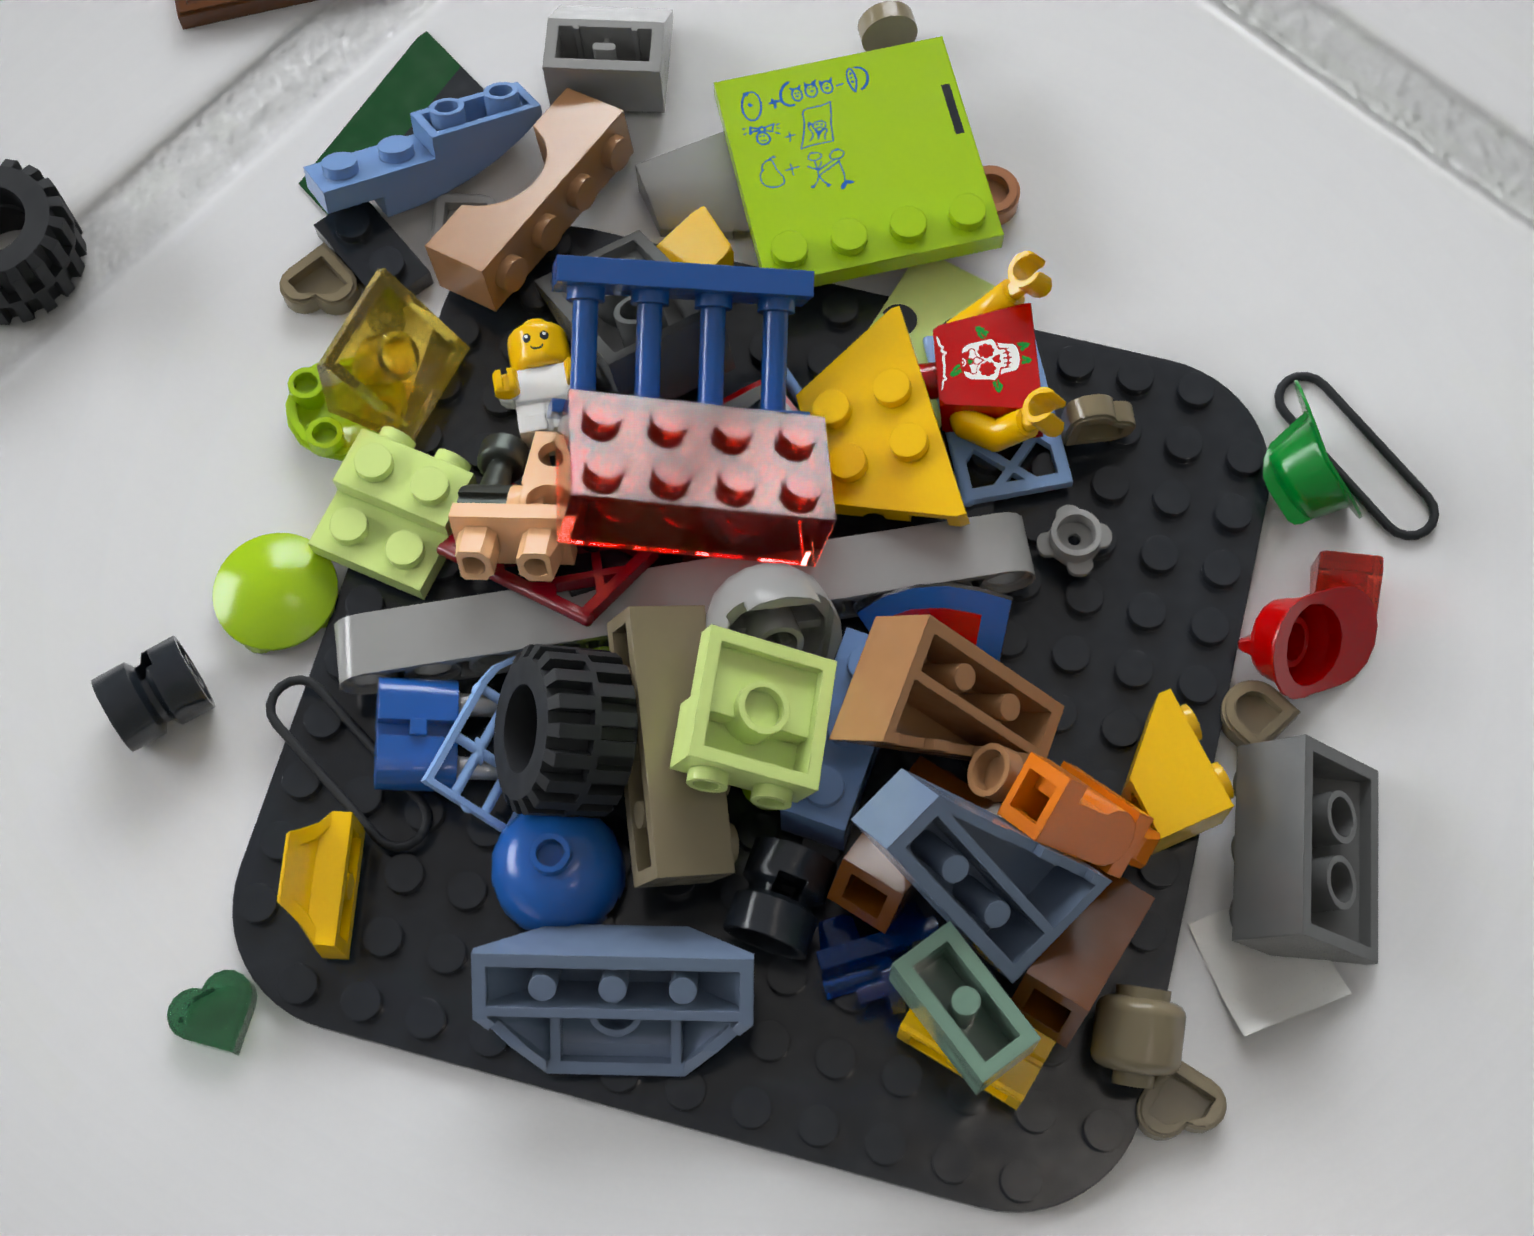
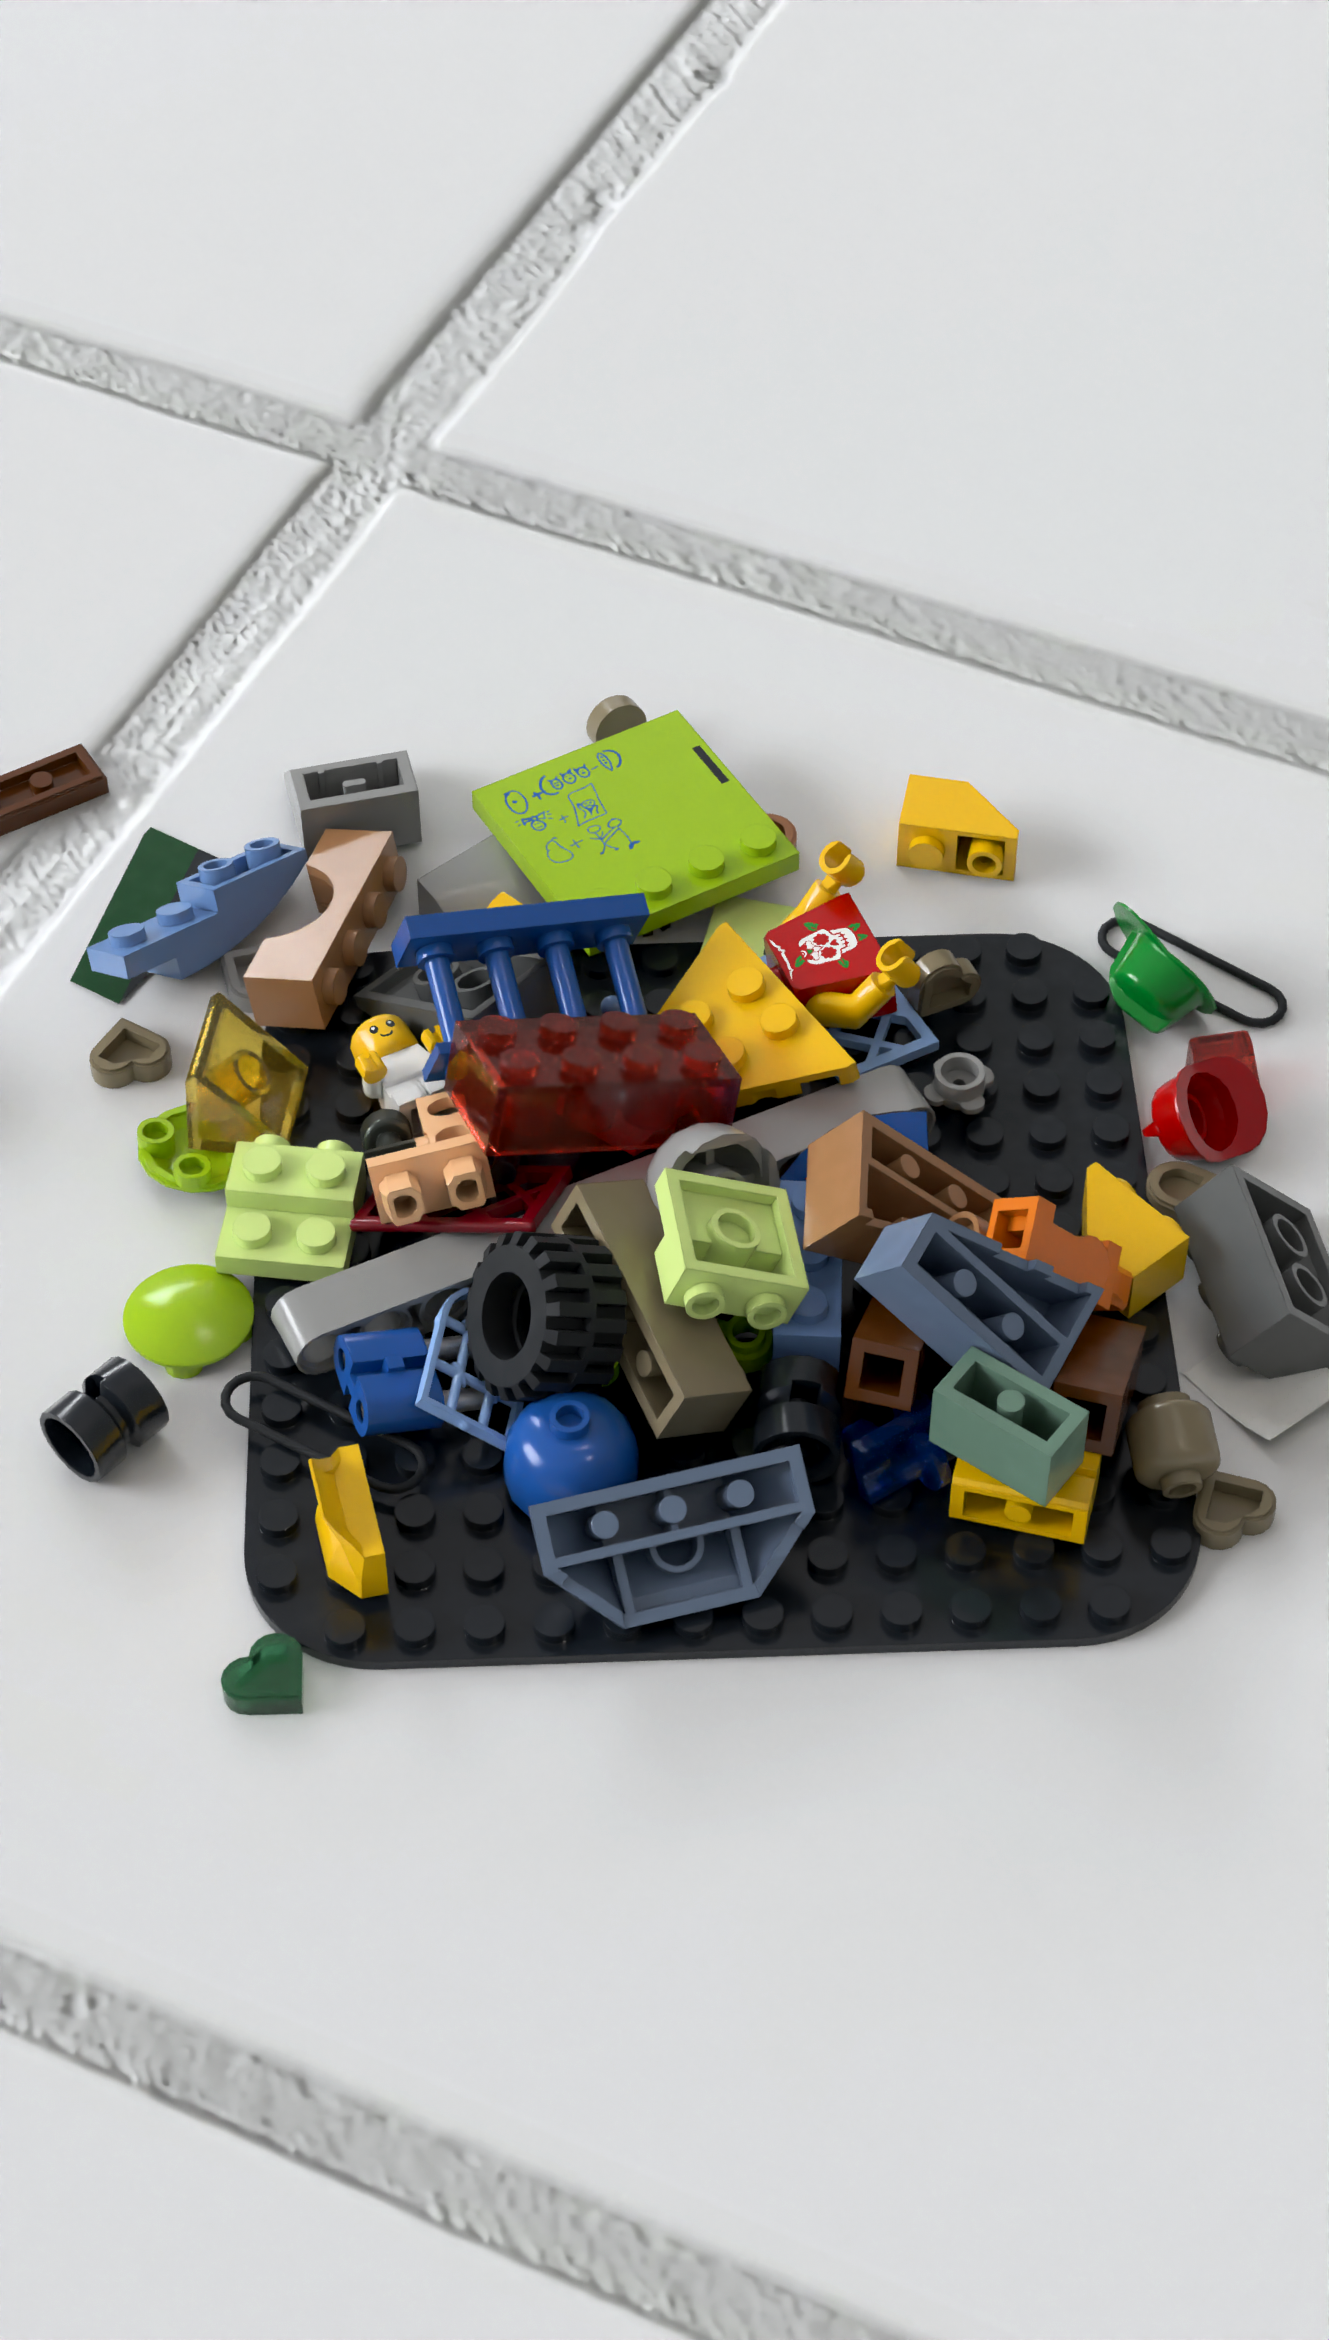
camera: 20 degrees left, 20 degrees down
(369, 243) = (163, 1009): black hinge -> none
(1171, 235) = (954, 830): none -> yellow slope

